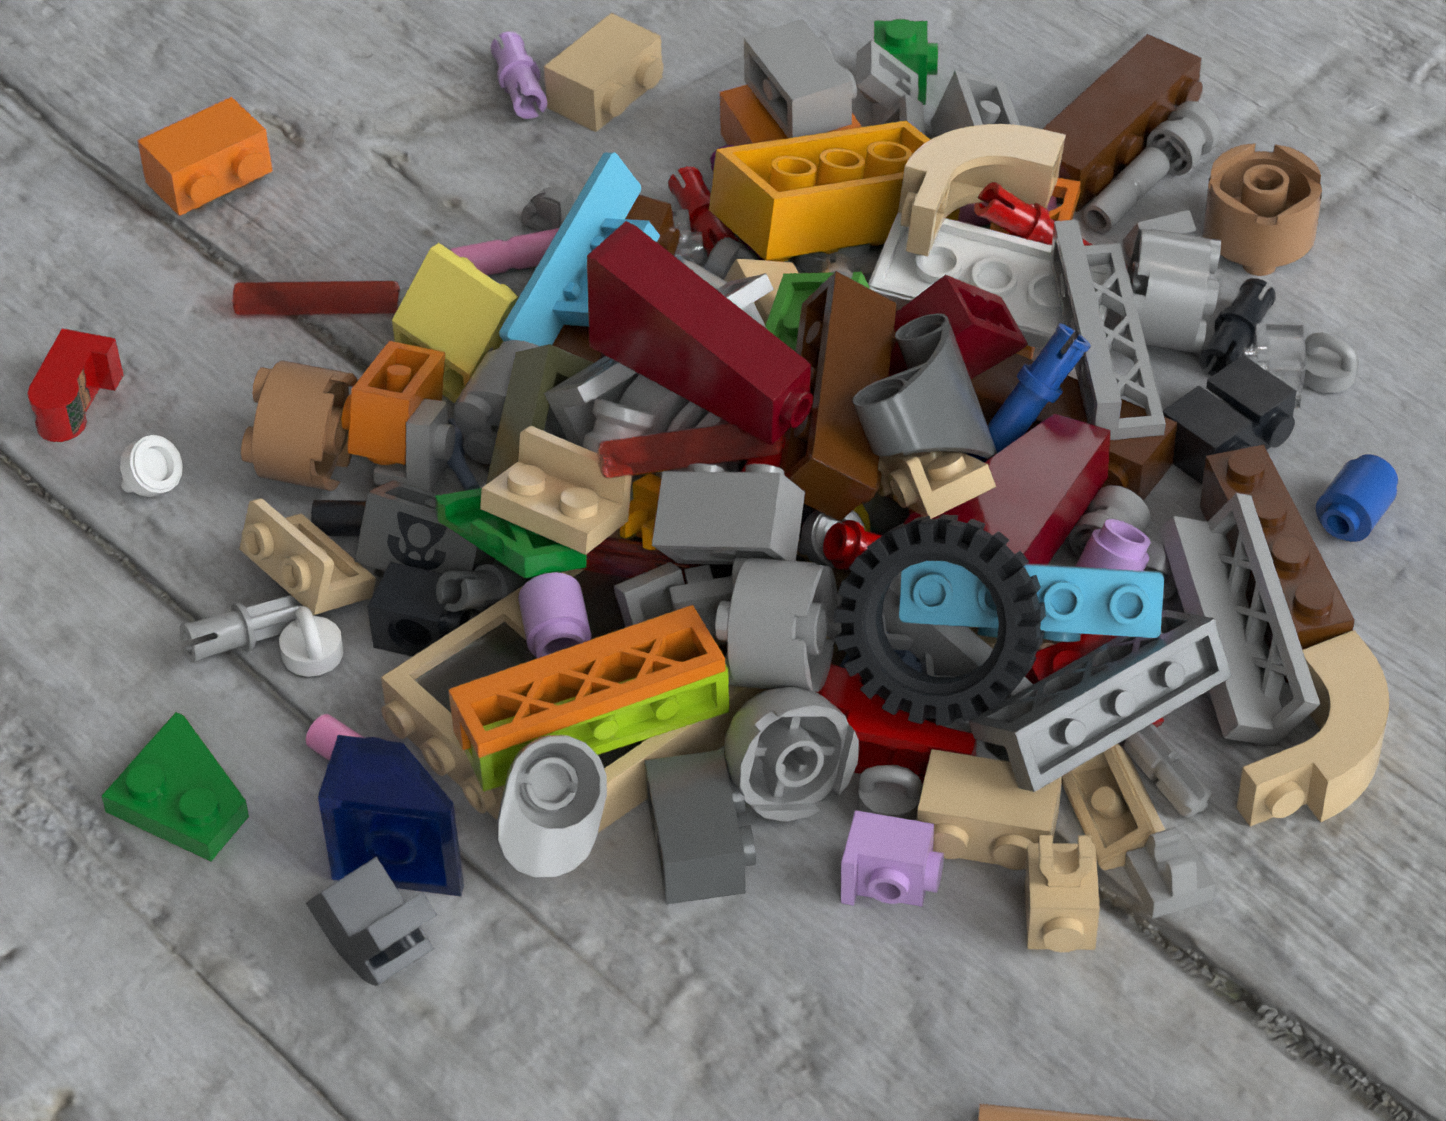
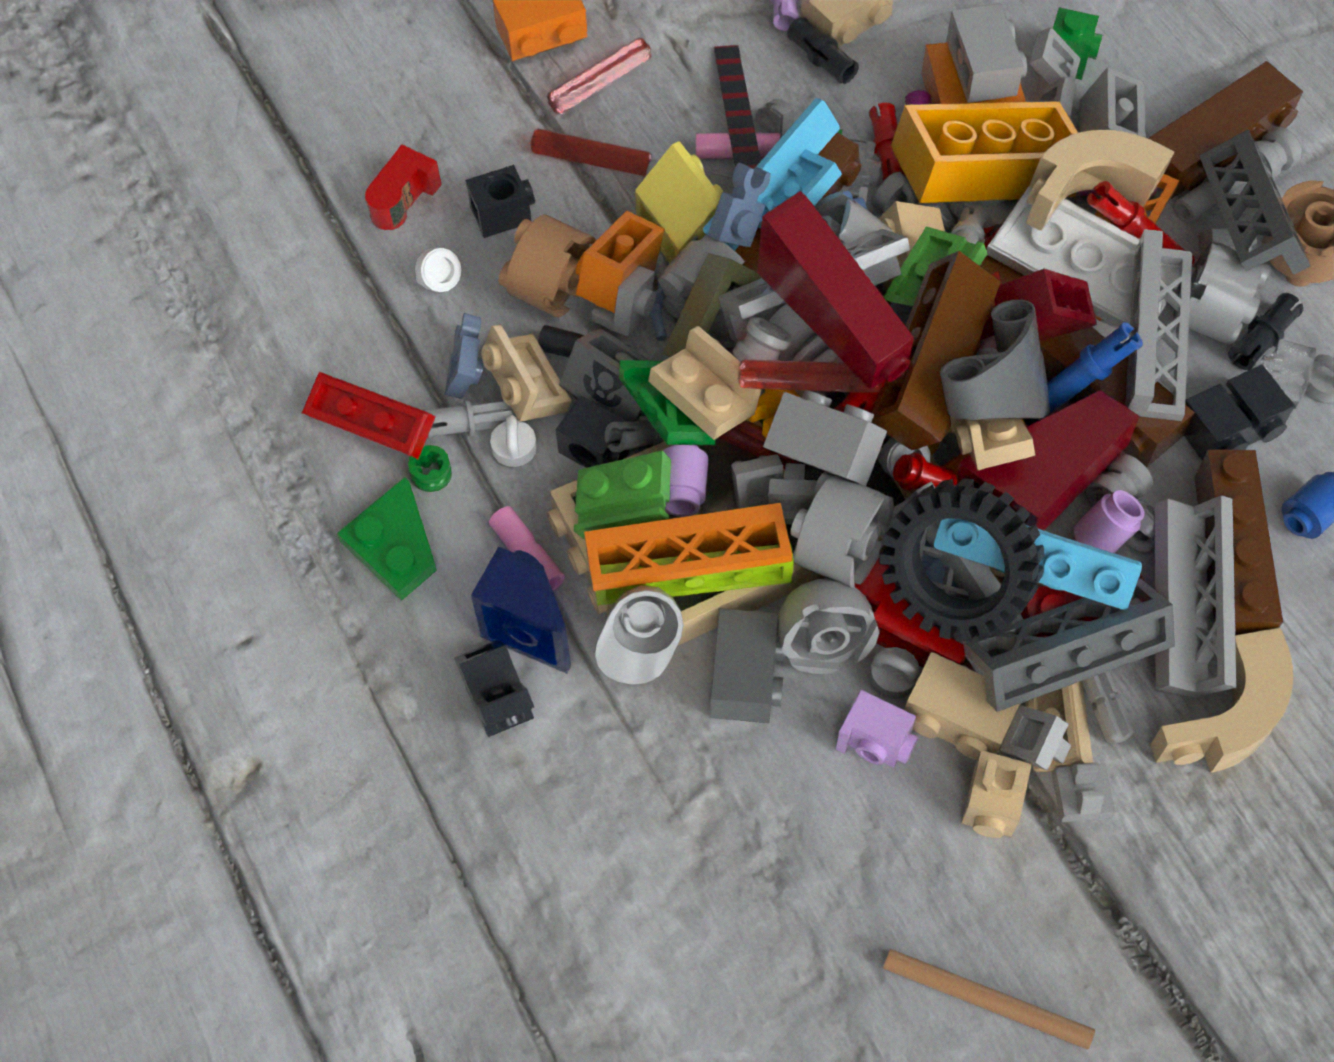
camera: 15 degrees right, 15 degrees up
(106, 647) = (368, 415): none -> red tile
(211, 372) = (499, 200): none -> black brick
(219, 565) = (464, 364): none -> sand blue plate
(220, 704) = (436, 478): none -> green bush
(301, 211) = (599, 76): none -> clear red axle
(479, 643) = (623, 492): none -> bright green plate
(495, 211) = (737, 106): none -> black sticker
(540, 303) = (740, 212): none -> sand blue plate
(569, 119) = (822, 50): none -> black pin
(1095, 809) = (1036, 738): none -> light grey tile
(1178, 164) = (1252, 168): none -> dark grey fence

